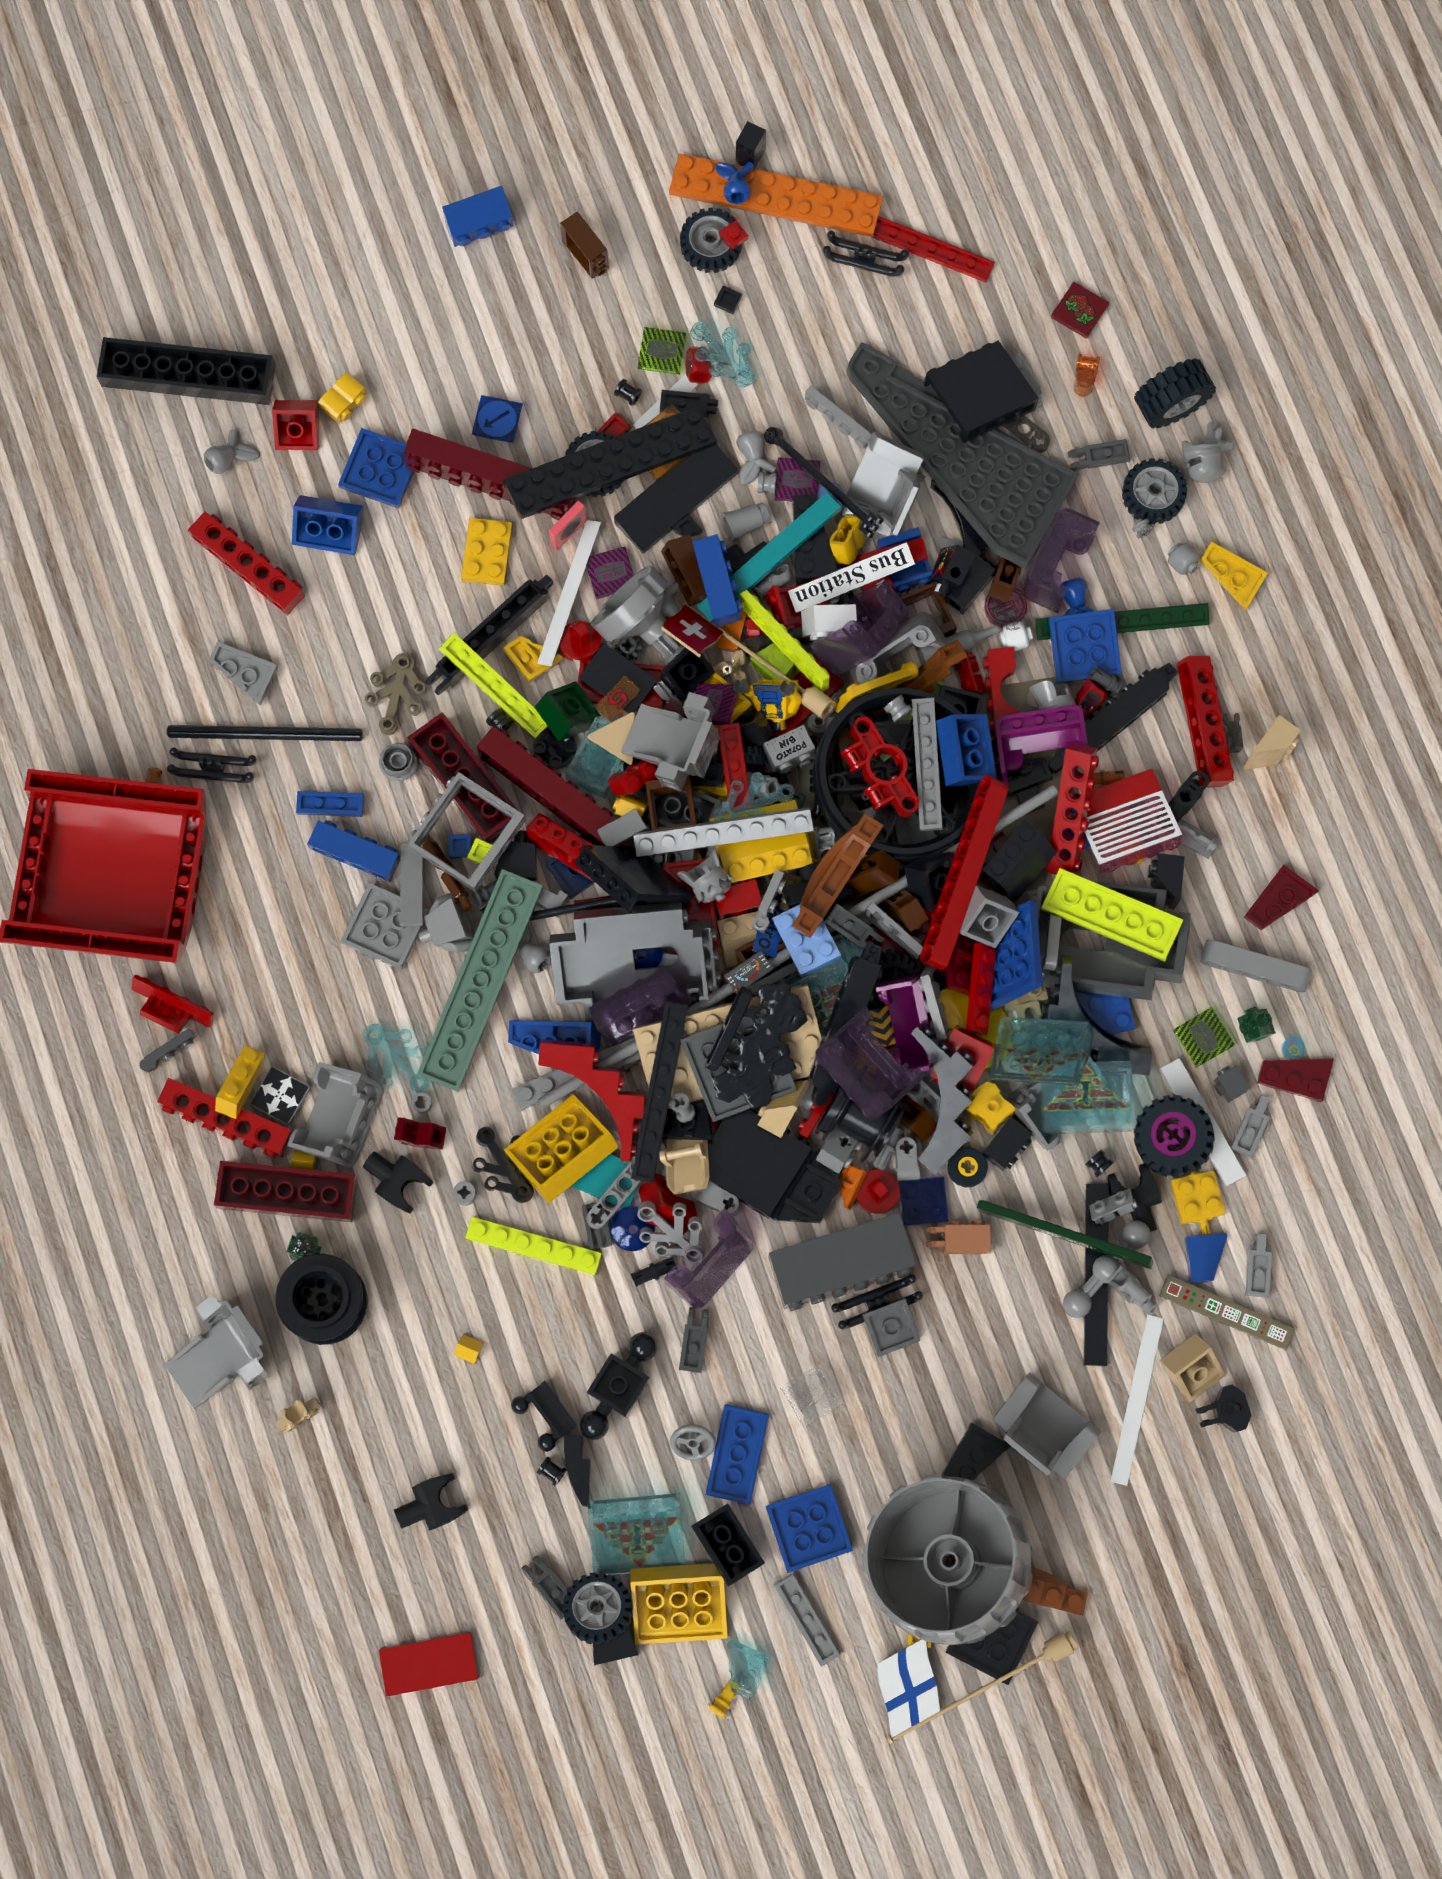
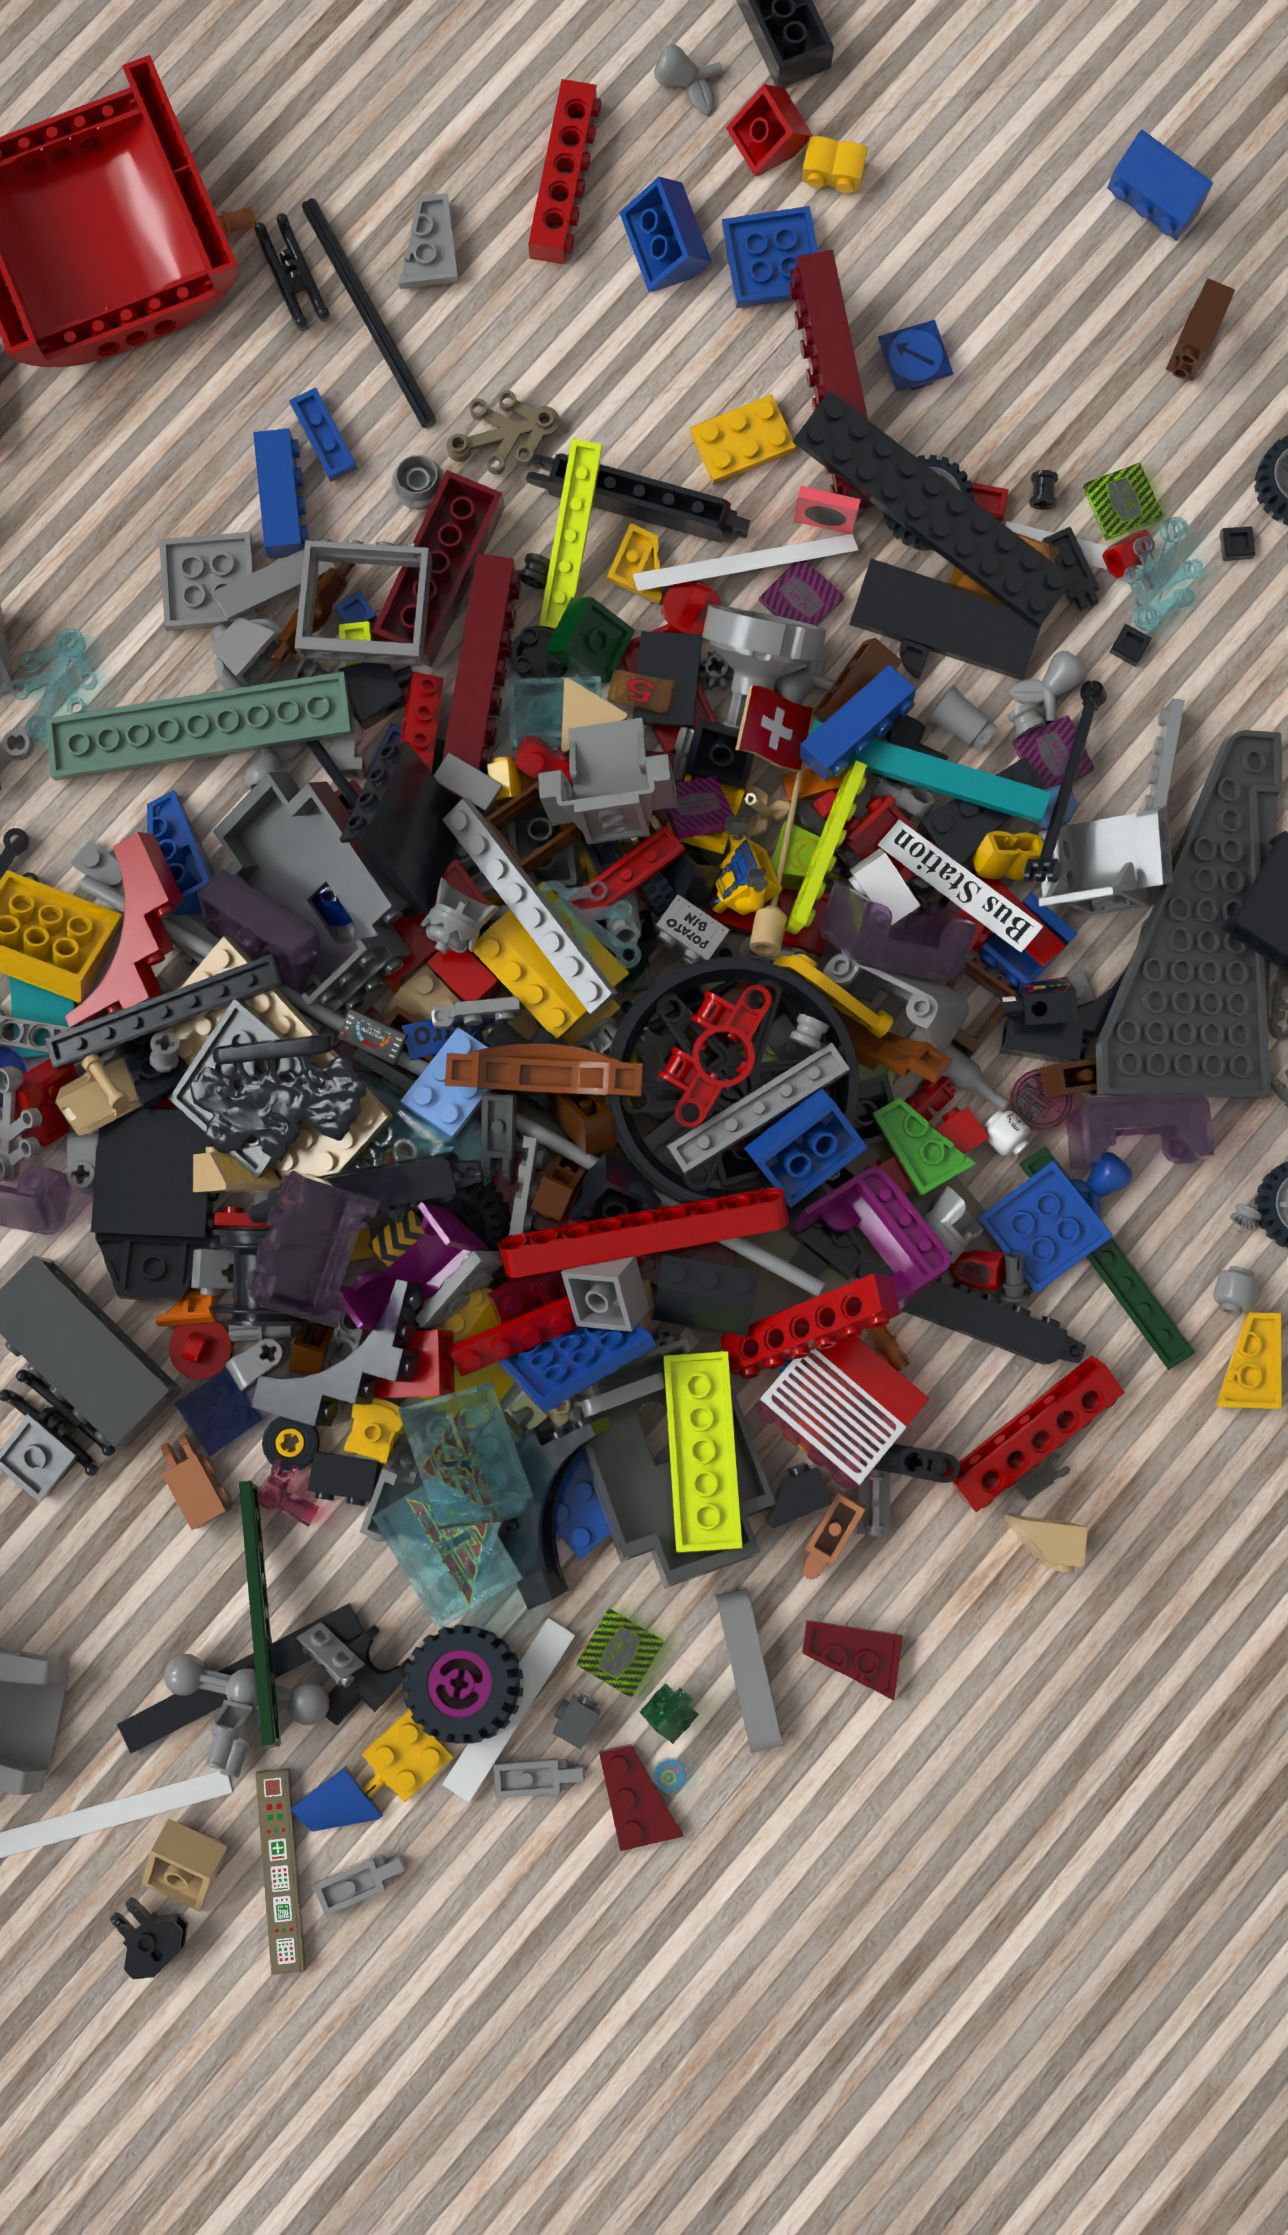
camera: 60 degrees right, 5 degrees up
(754, 397) = (1130, 645): none -> black tile
(995, 1193) = (275, 1495): none -> clear pink bar
(1001, 689) = (919, 1148): none -> bright green wing
(1099, 1163) = (382, 1606): black wheel -> none
(1201, 871) = (832, 1533): none -> nougat hinge

